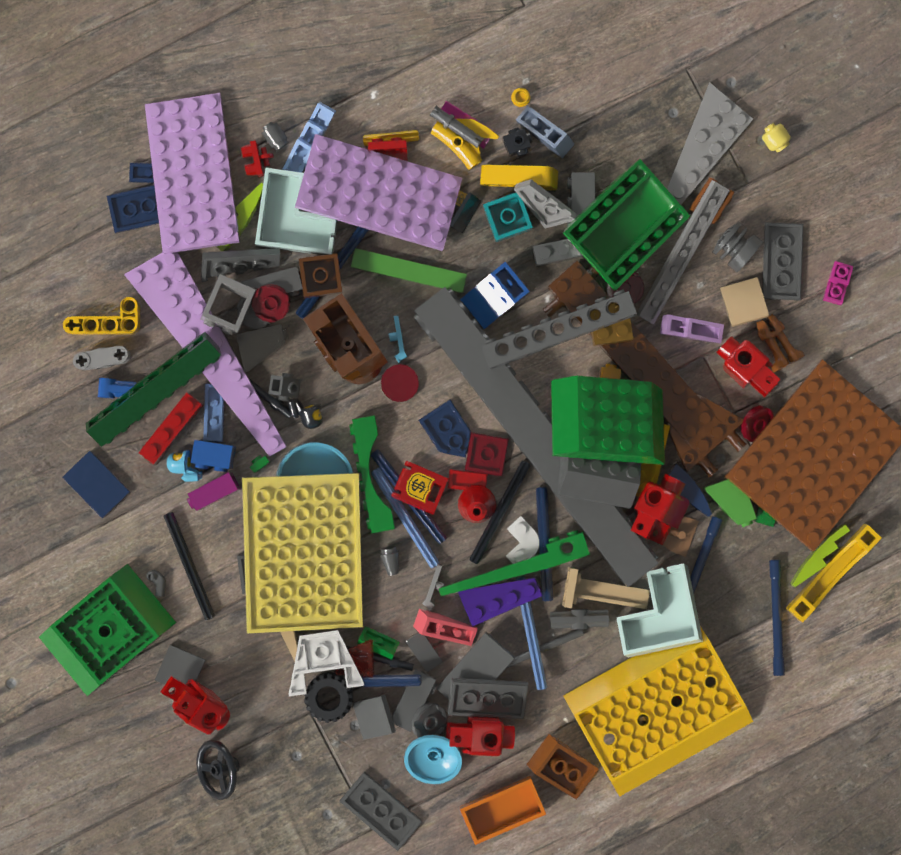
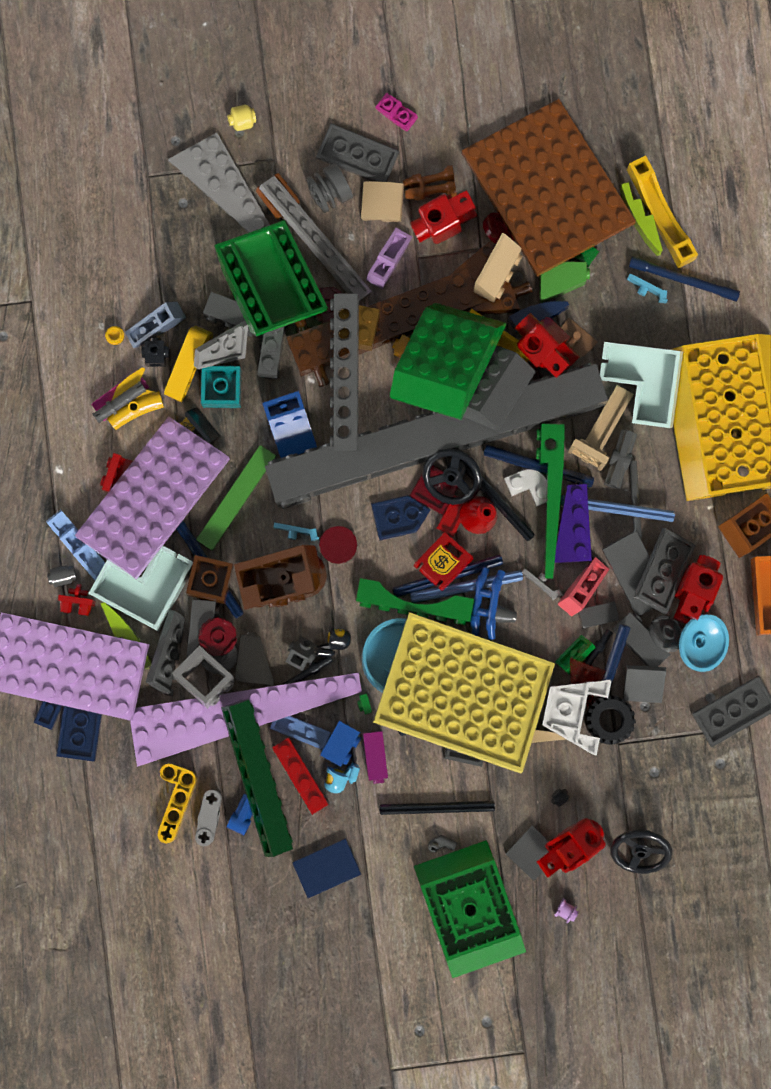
camera: 70 degrees left, 5 degrees down
(137, 720) = (566, 911): none -> lavender brick
(240, 676) = (560, 797): none -> black plate
(405, 545) = (493, 594): none -> blue piece
(409, 136) = (110, 449): yellow axle -> none
(502, 466) = (452, 476): none -> black piece
(711, 533) = (584, 309): dark blue piece -> none
(715, 437) = (498, 269): none -> tan slope
(755, 583) = (645, 286): none -> medium azure piece

